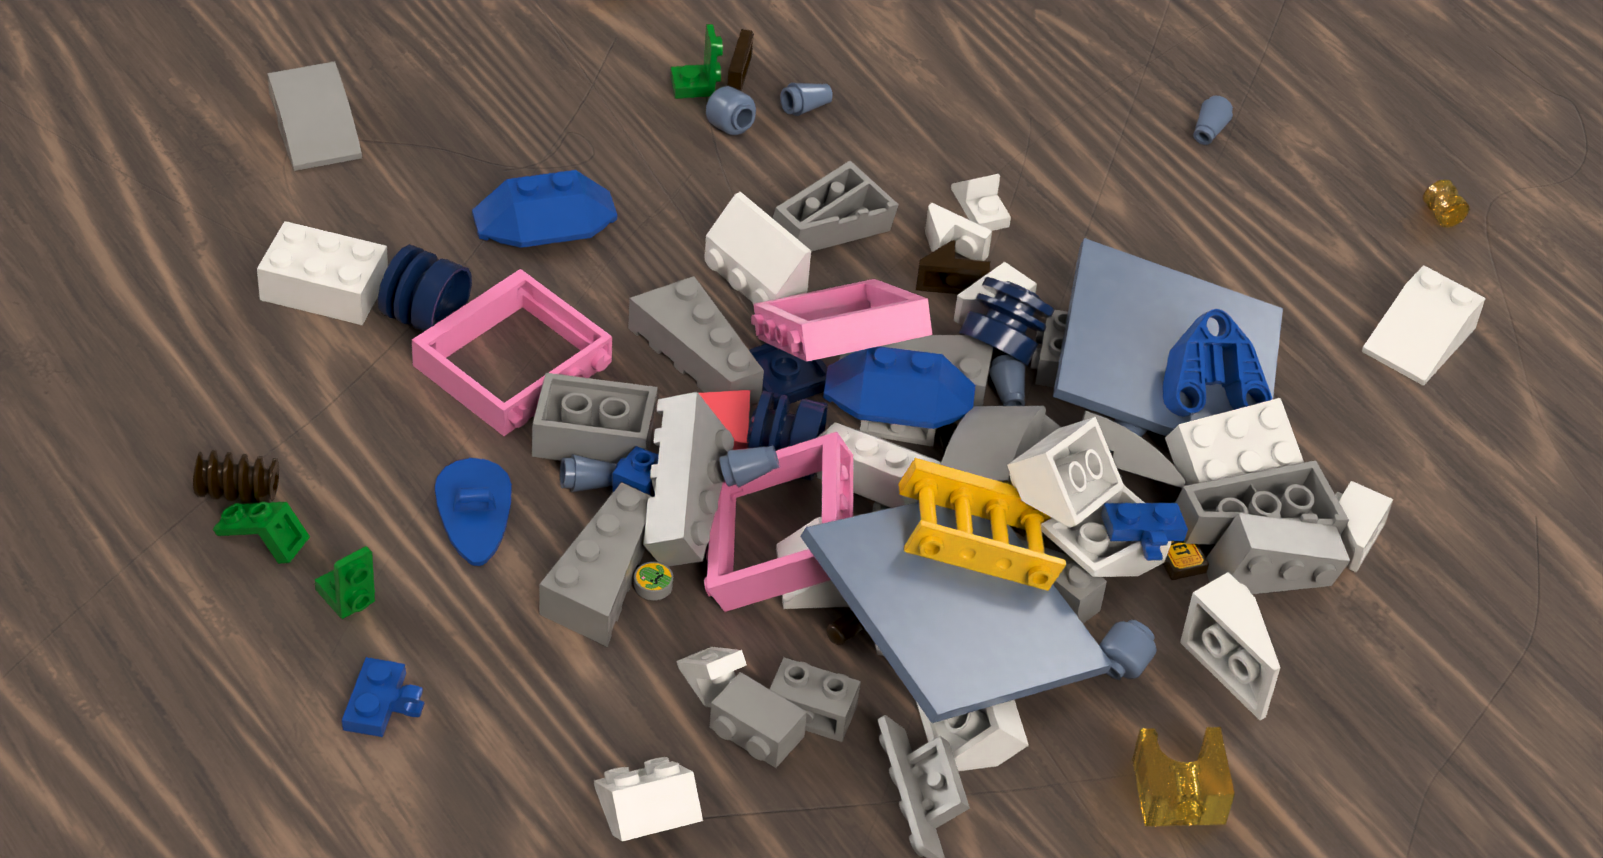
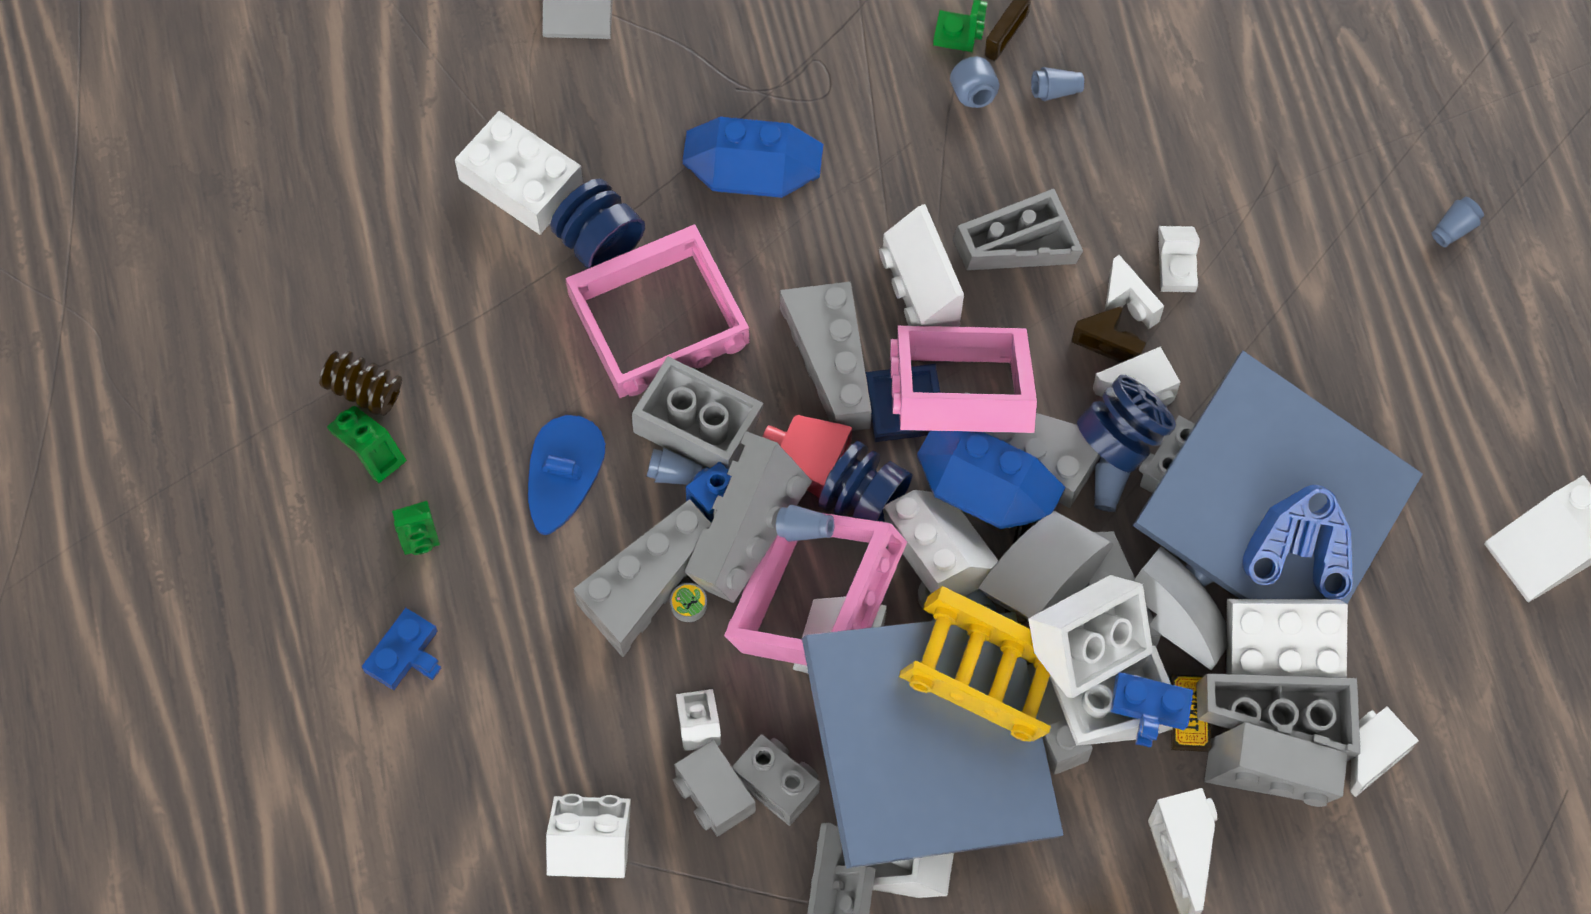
camera: 25 degrees right, 20 degrees up
(1129, 649) = (1086, 820): sand blue head -> none

